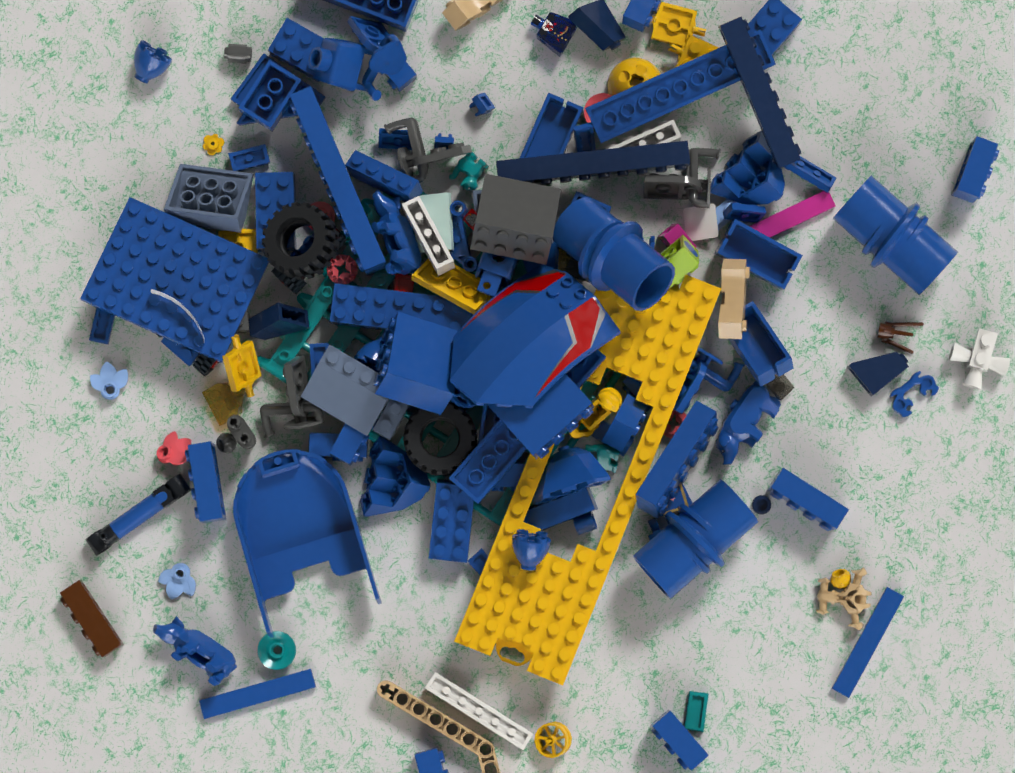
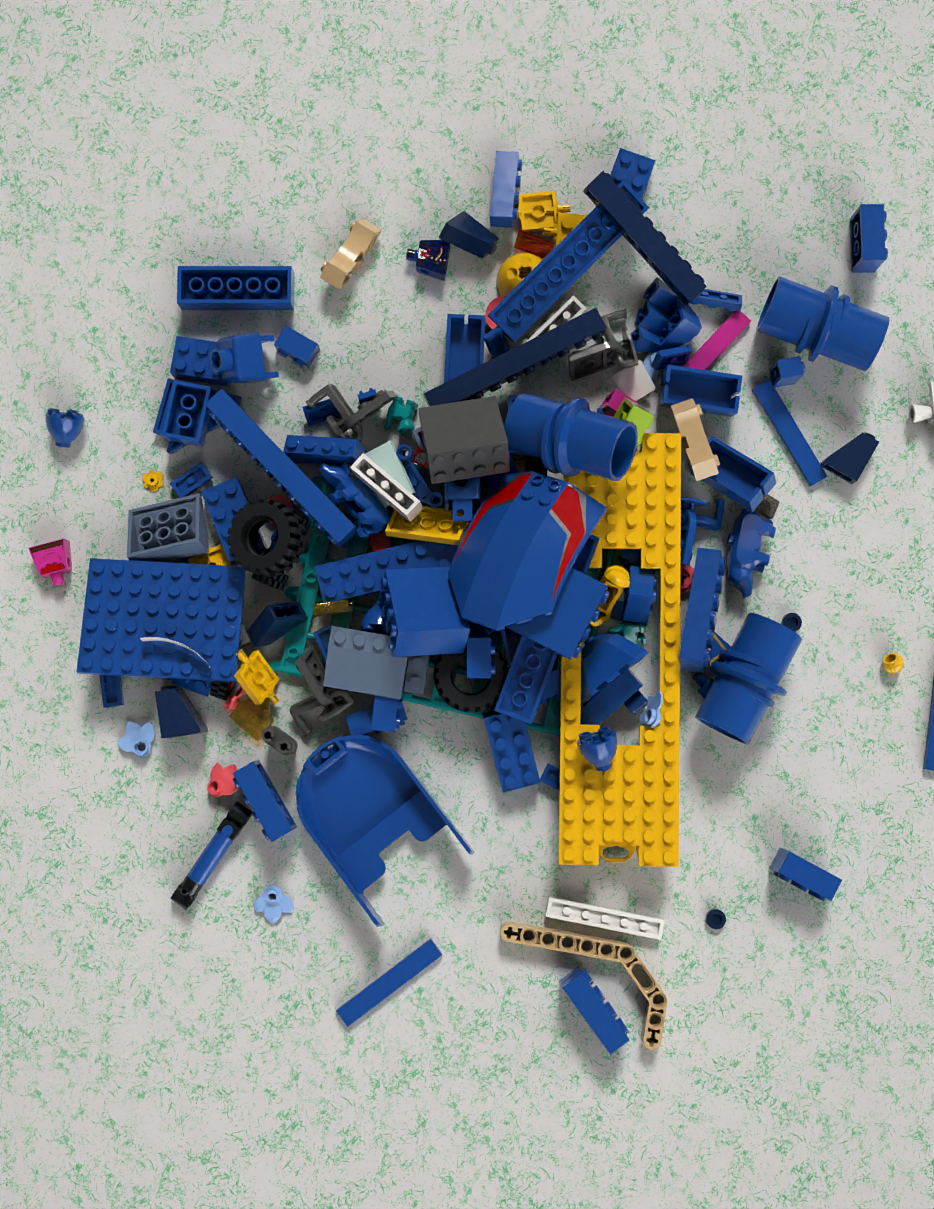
camera: 20 degrees left, 0 degrees up
(91, 618) = (204, 972): reddish brown brick -> none
(92, 184) = (53, 560): none -> dark pink torso
(155, 372) = (177, 713): none -> dark blue slope
(198, 649) = (318, 963): blue animal -> none
(210, 379) = (232, 701): none -> coral plate
(226, 443) = (269, 755): dark grey piece -> none
(238, 53) = (144, 387): dark grey brick -> none
(266, 650) = (389, 944): teal dish -> none
(336, 328) = (332, 608): none -> clear yellow slope
(344, 278) = (323, 557): coral gear -> none
(387, 51) = (282, 332): blue plate -> none
(391, 480) = (439, 732): blue brick -> none
(453, 425) = (479, 658): none -> blue brick
(483, 104) = (390, 348): blue tile -> none
(553, 739) = (685, 919): yellow wheel -> none
(582, 751) = (715, 918): none -> dark blue tile
(592, 539) = (652, 715): none -> light blue plate
(657, 55) = (533, 244): none -> clear red tile
(696, 711) = (807, 839): teal tile -> none
(807, 499) = (835, 600): blue brick -> none
(830, 325) = (789, 433): none -> blue tile
(848, 267) = (787, 371): none -> blue brick
(852, 598) = (911, 677): tan piece -> none
(888, 330) = (844, 417): reddish brown plant -> none
(926, 383) = (881, 480): blue helmet -> none

